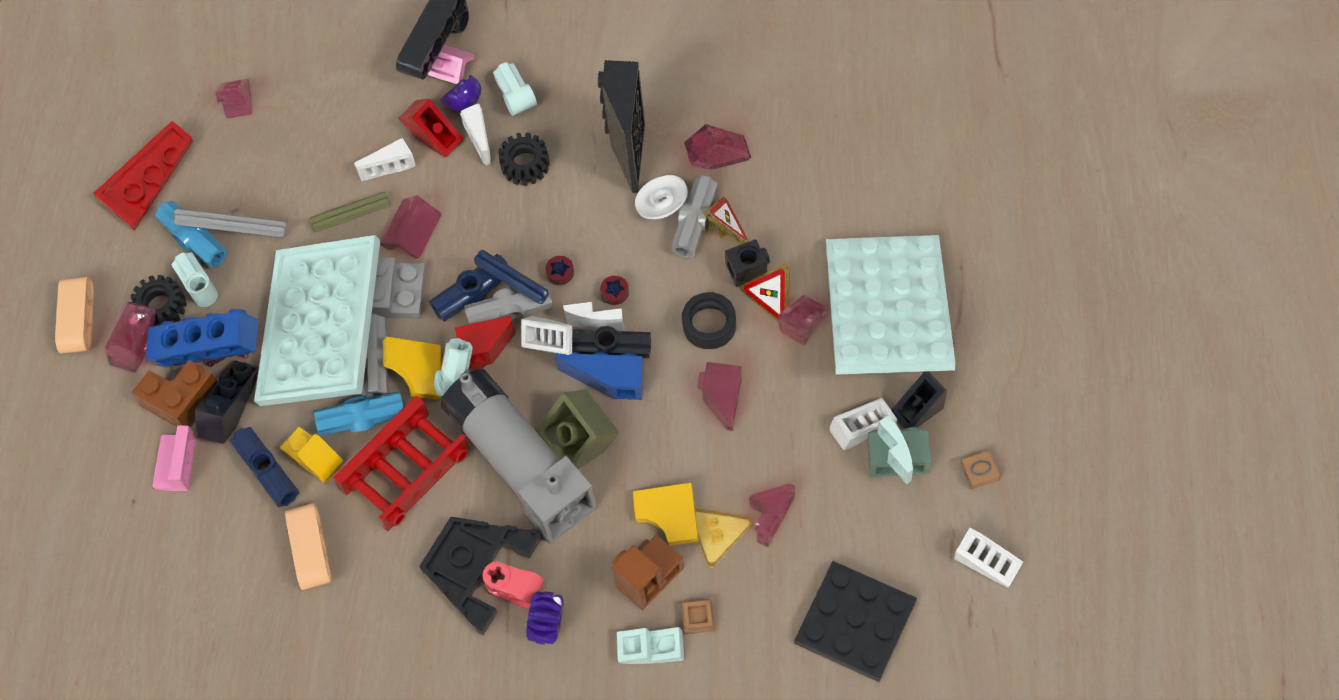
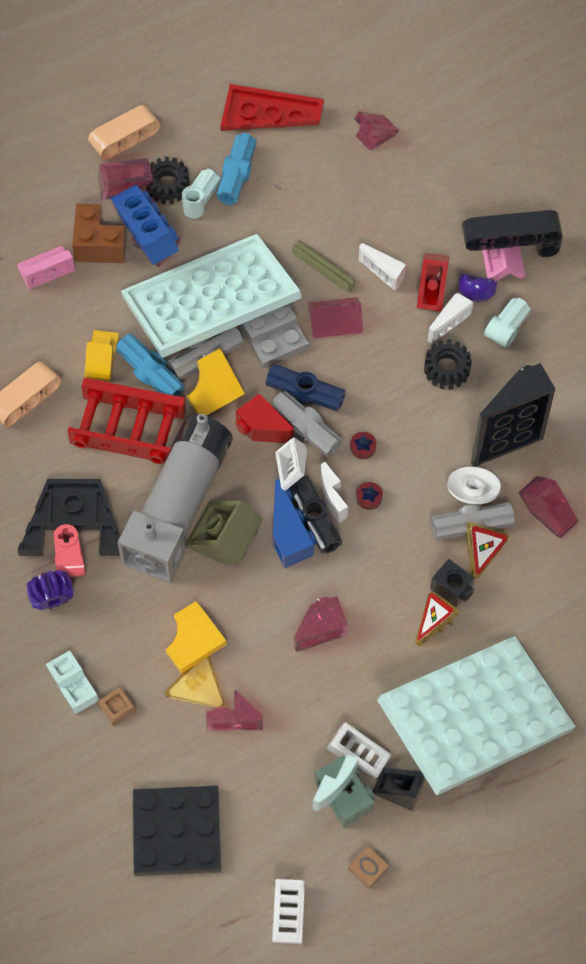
camera: 55 degrees right, 0 degrees up
(224, 404) = (109, 272): black slope -> none
(229, 222) = (258, 188): light grey axle -> none
(273, 477) = (66, 339): dark blue piece -> none
(455, 362) = (226, 409): light aqua piece -> none
(511, 277) = (325, 409): dark blue axle -> none
(646, 570) = (129, 647): dark orange brick -> none
(707, 301) = (382, 562): black tyre -> none
(800, 318) = (425, 650): clear pink slope -> none

